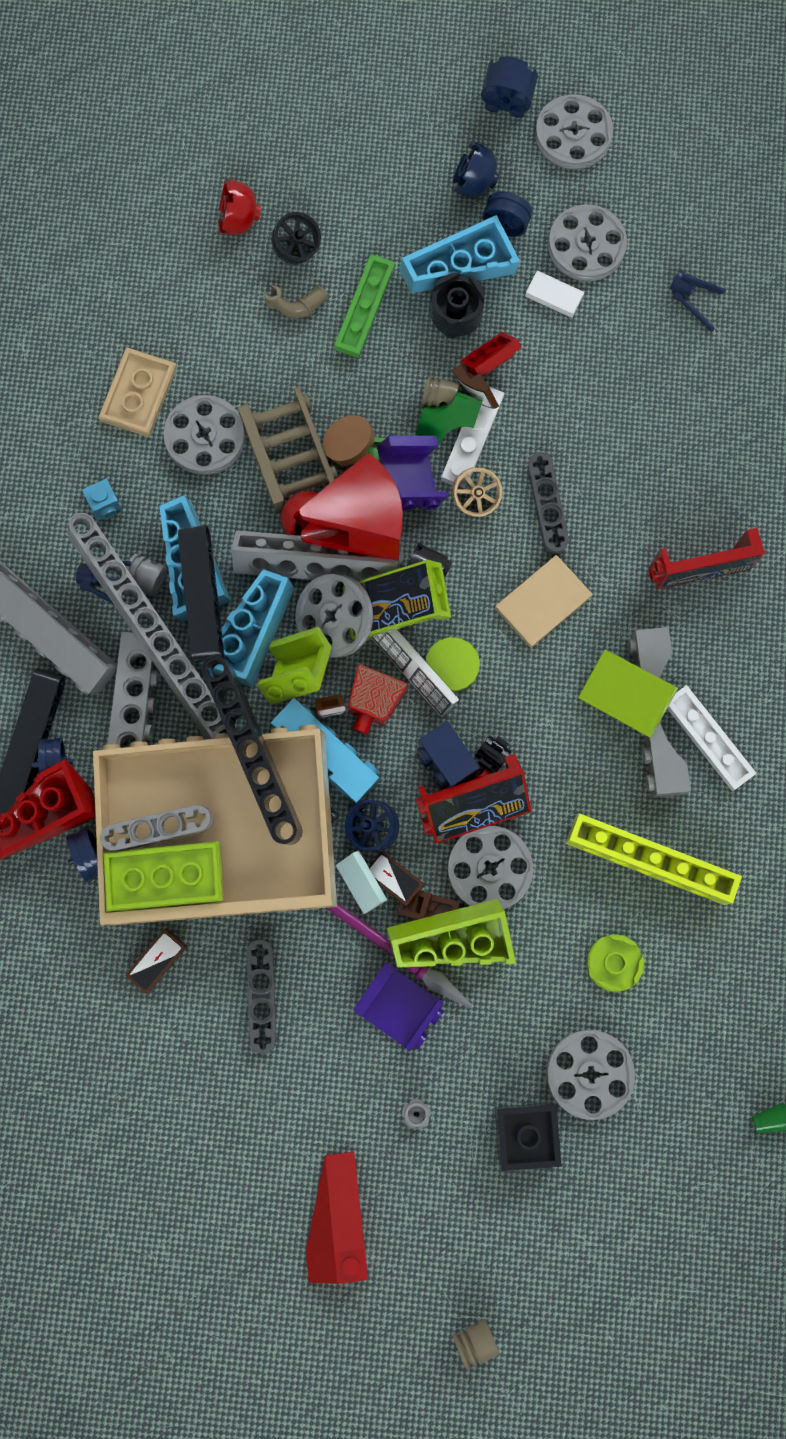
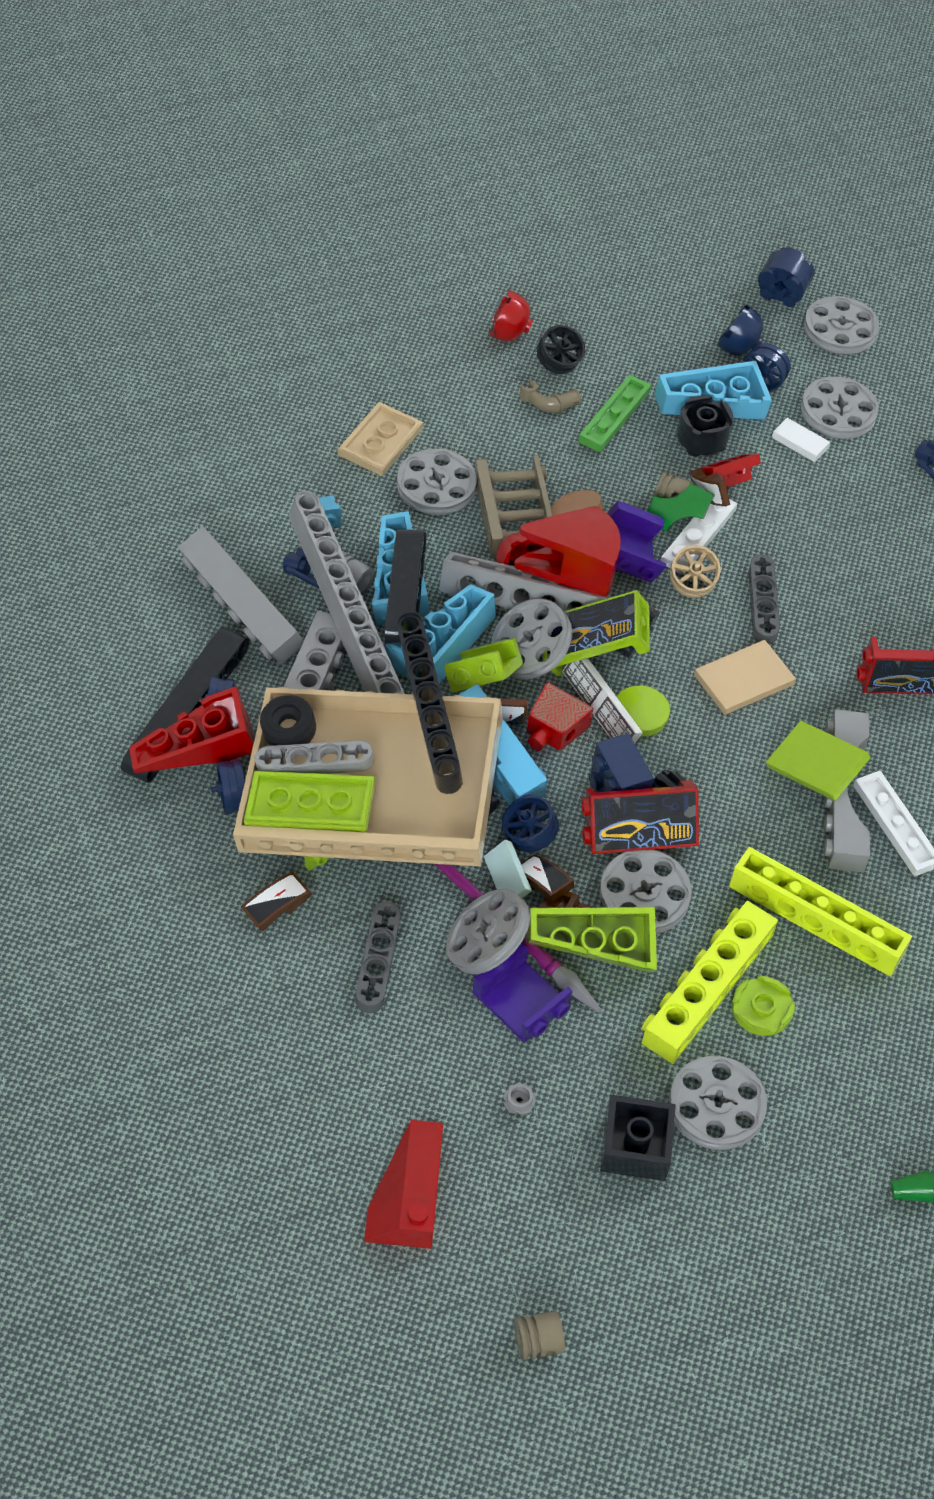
camera: 10 degrees right, 25 degrees down
(106, 794) = (288, 708): none -> black tyre
(352, 969) = (488, 931): none -> light grey wedge
(600, 890) = (671, 1039): none -> neon yellow brick

